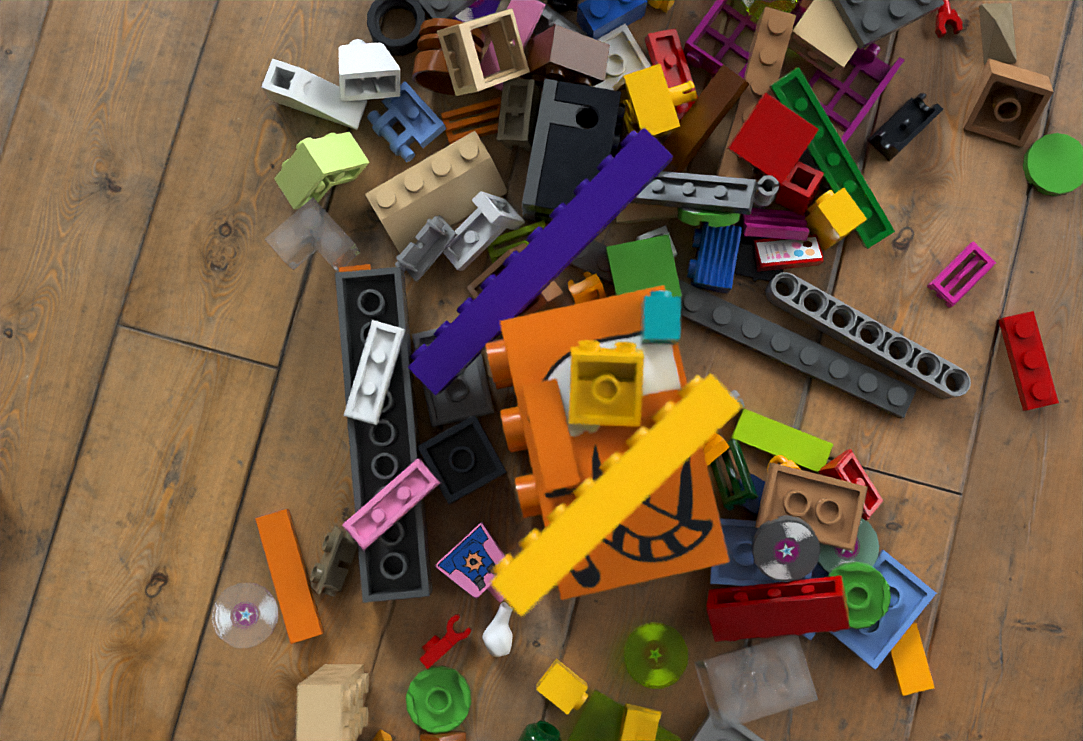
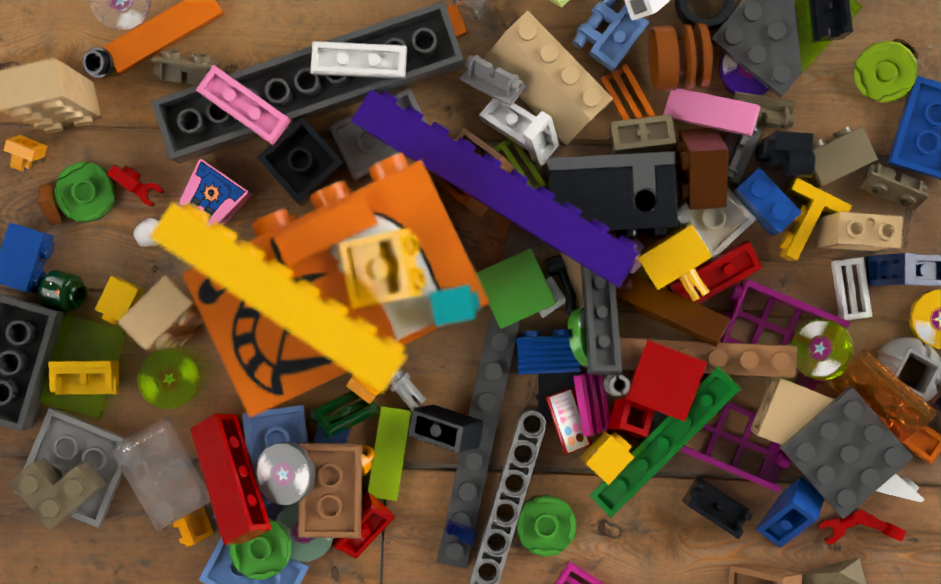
camera: 75 degrees right, 5 degrees up
(302, 660) = (91, 62): none -> black plate
(463, 59) = (672, 68): tan window -> none
(586, 290) = (485, 241): light orange tile -> none
(597, 637) = (163, 316): none -> tan brick
(627, 228) = (556, 266): none -> black piece
(771, 373) = (446, 428): none -> black brick
(821, 661) = (194, 527): none -> light orange tile
(883, 377) = (466, 534): none -> clear blue tile
(888, 298) = (546, 525): none -> bright green tile
(925, 55) = (791, 513): none -> blue slope

